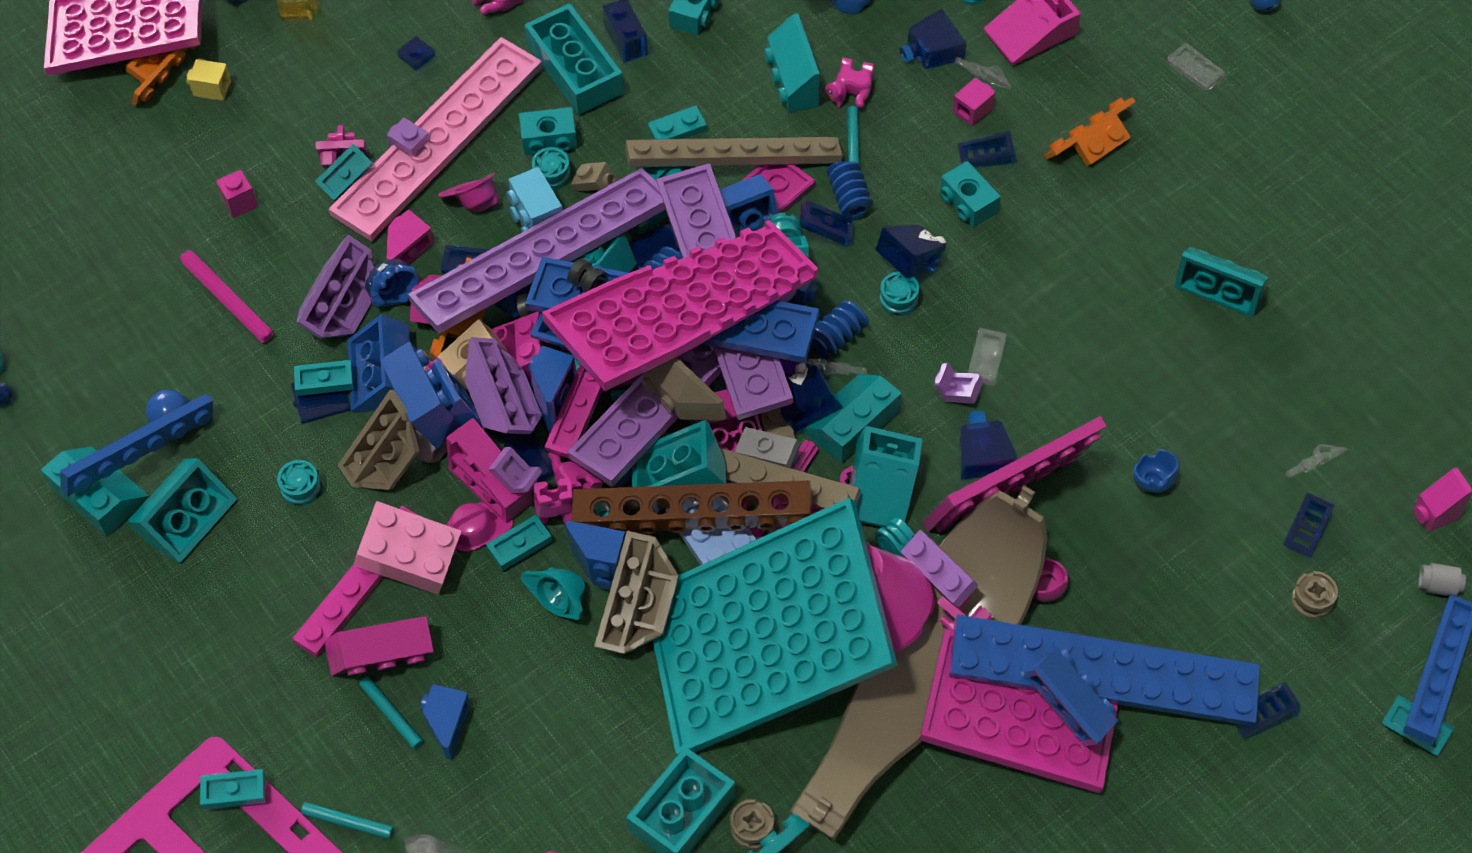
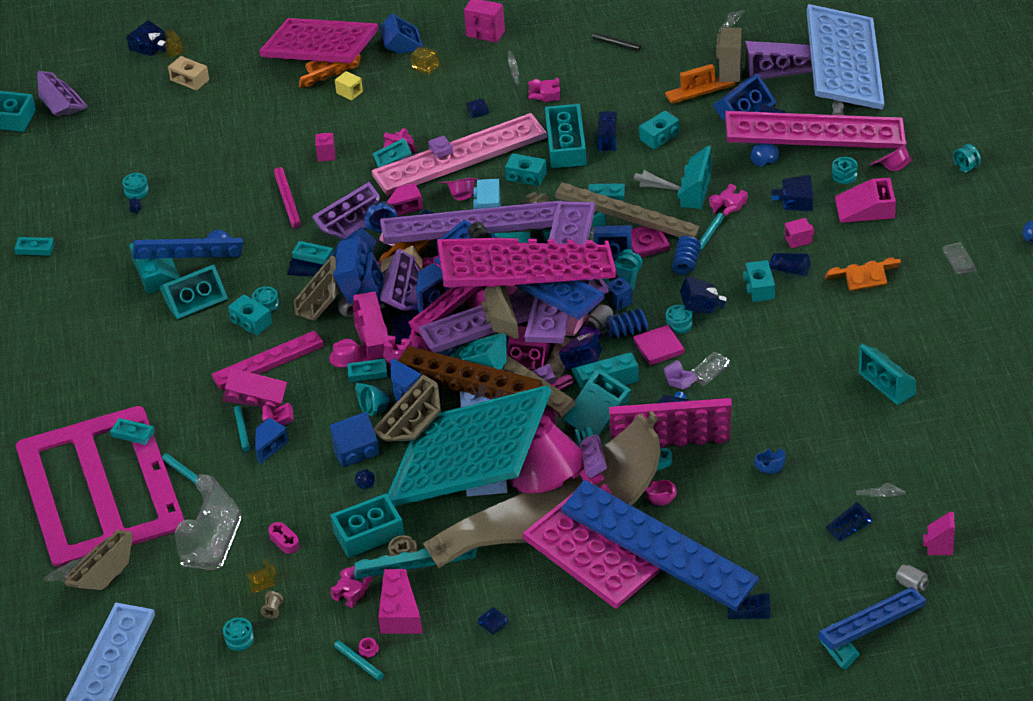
camera: 30 degrees right, 15 degrees down
(280, 506) = (250, 315): none -> teal brick
(407, 547) = (300, 347): bright pink brick -> none
(438, 670) = (282, 414): none -> dark pink bracket
(514, 472) = (380, 326): medium lavender bracket -> none
(553, 166) = (515, 190): teal wheel -> none
(578, 672) = (354, 439): none -> blue slope
(624, 726) = (364, 479): none -> clear blue plate
(726, 87) = (650, 180): none -> light grey piece
(767, 446) = (537, 364): light grey plate -> none
(826, 223) = (658, 266): clear blue plate -> none
(830, 367) = (611, 344): clear hand -> none
(894, 344) = (658, 345): none -> dark pink tile
(986, 73) = (821, 222): clear hand -> none
(1072, 696) = (622, 541): blue slope -> none
(1315, 594) = (824, 558): dark tan wheel -> none

